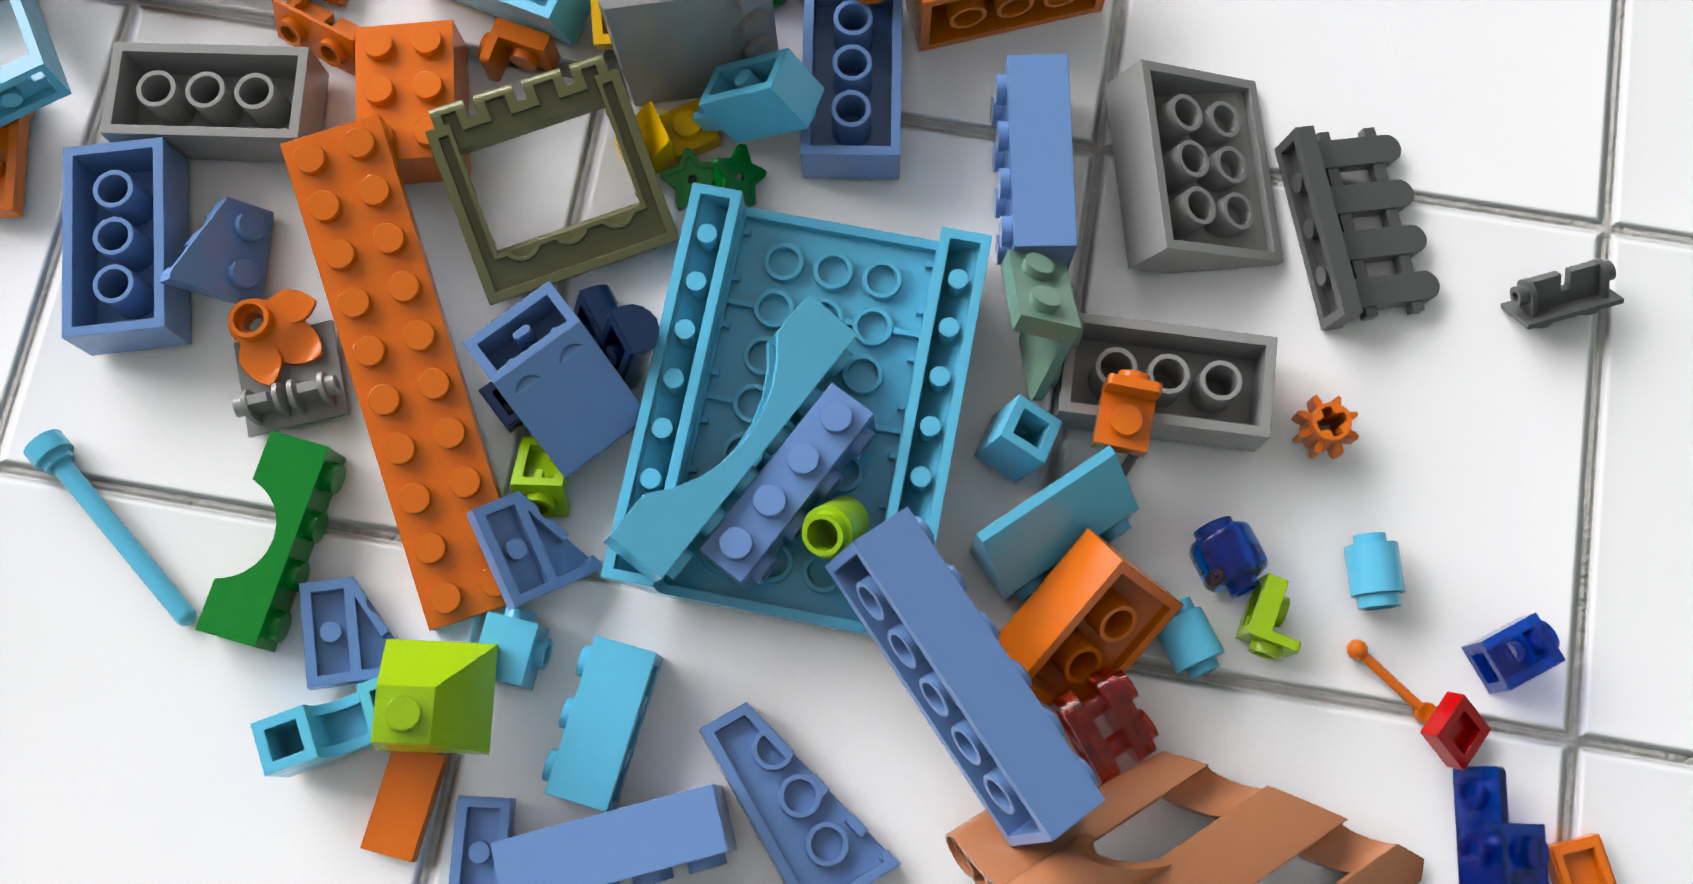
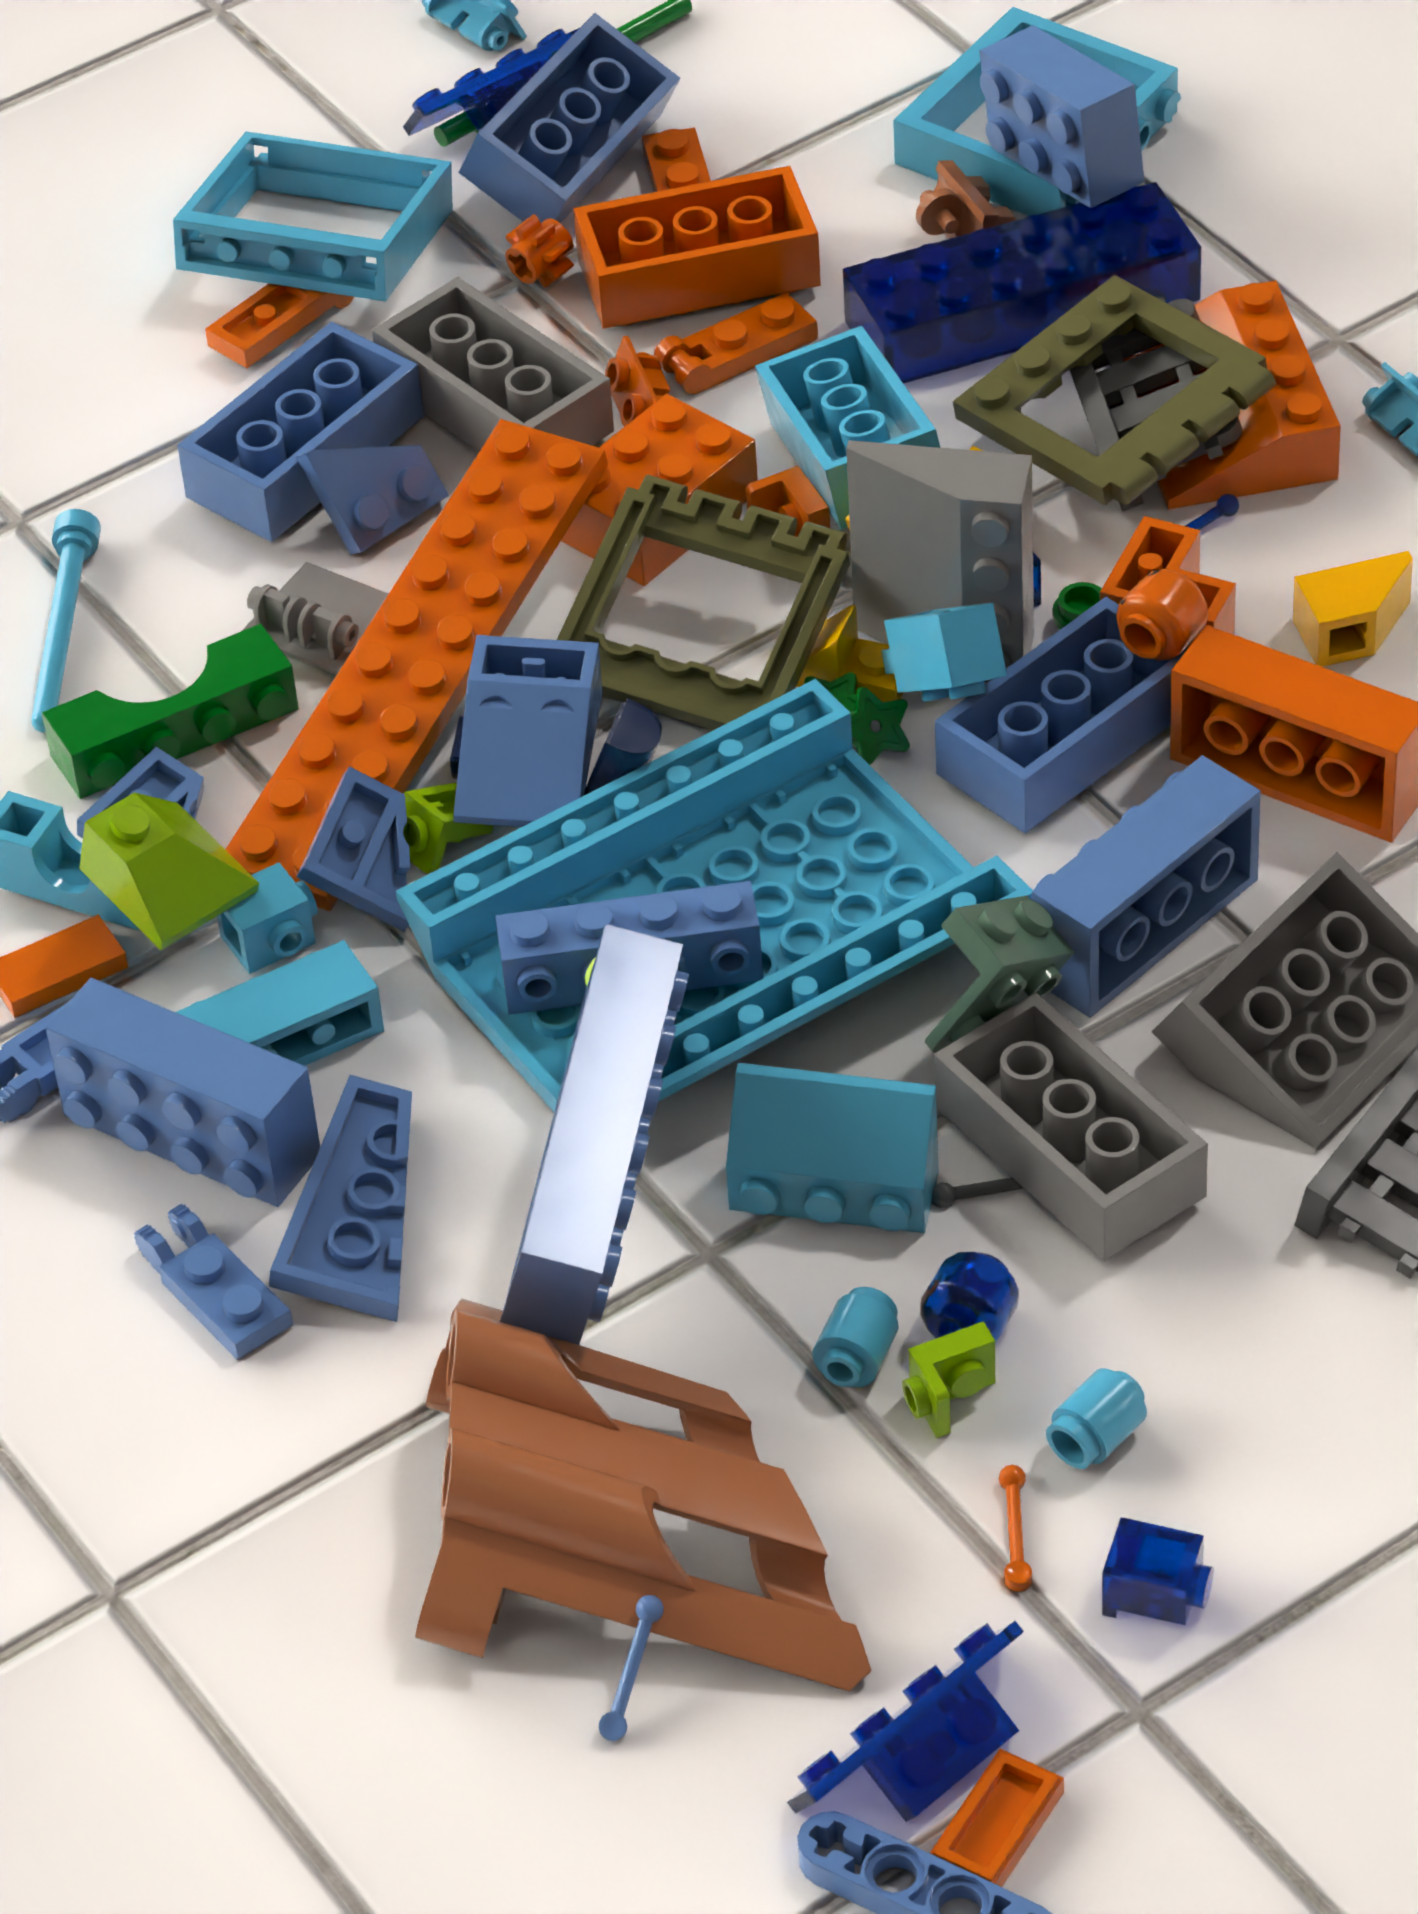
camera: 45 degrees right, 30 degrees down
(279, 339) = (345, 570): orange plate -> none
(666, 521) = (490, 872): medium azure arch -> none
(1018, 438) = (883, 1052): medium azure brick -> none
(1085, 617) = (764, 1243): orange slope -> none
(1114, 699) = (725, 1301): clear red brick -> none
(1126, 412) = (988, 1085): orange bracket -> none
(1328, 413) = (1190, 1279): orange gear -> none
(1455, 730) = (1021, 1588): red plate -> none

